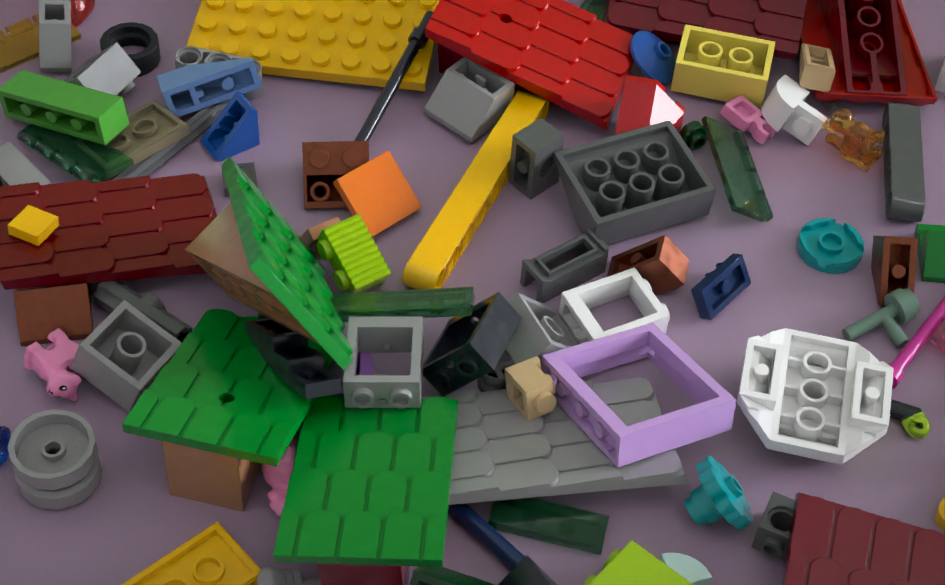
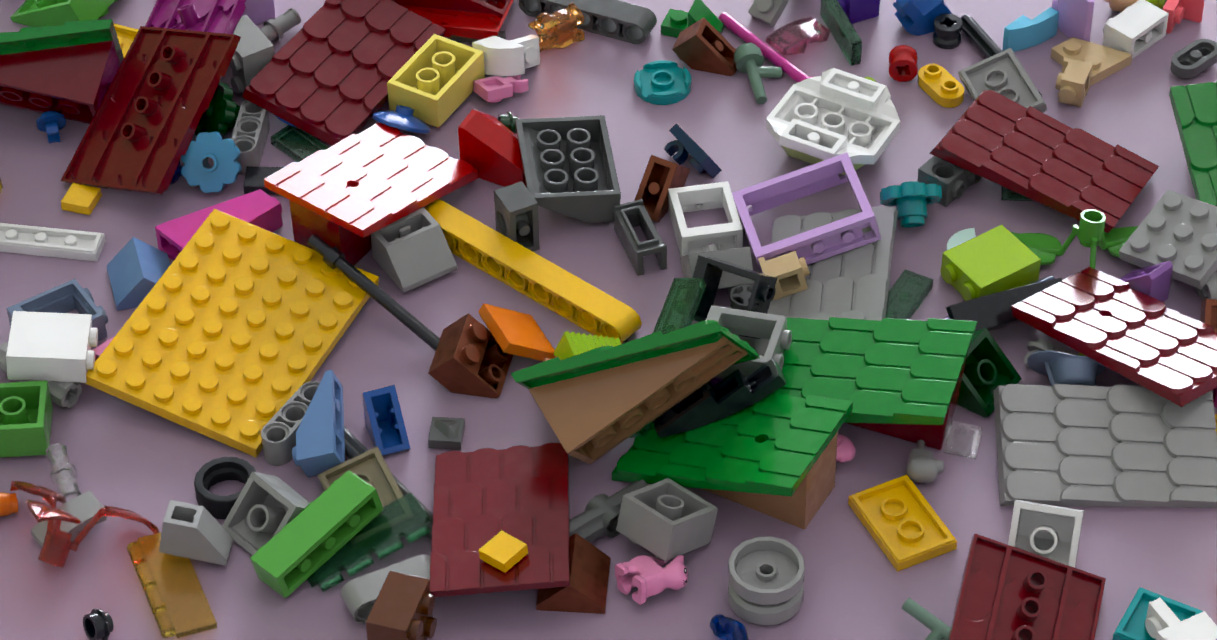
camera: 70 degrees left, 5 degrees down
(737, 170) = (557, 107): clear green windscreen -> none
(816, 68) = (473, 20): tan slope -> none

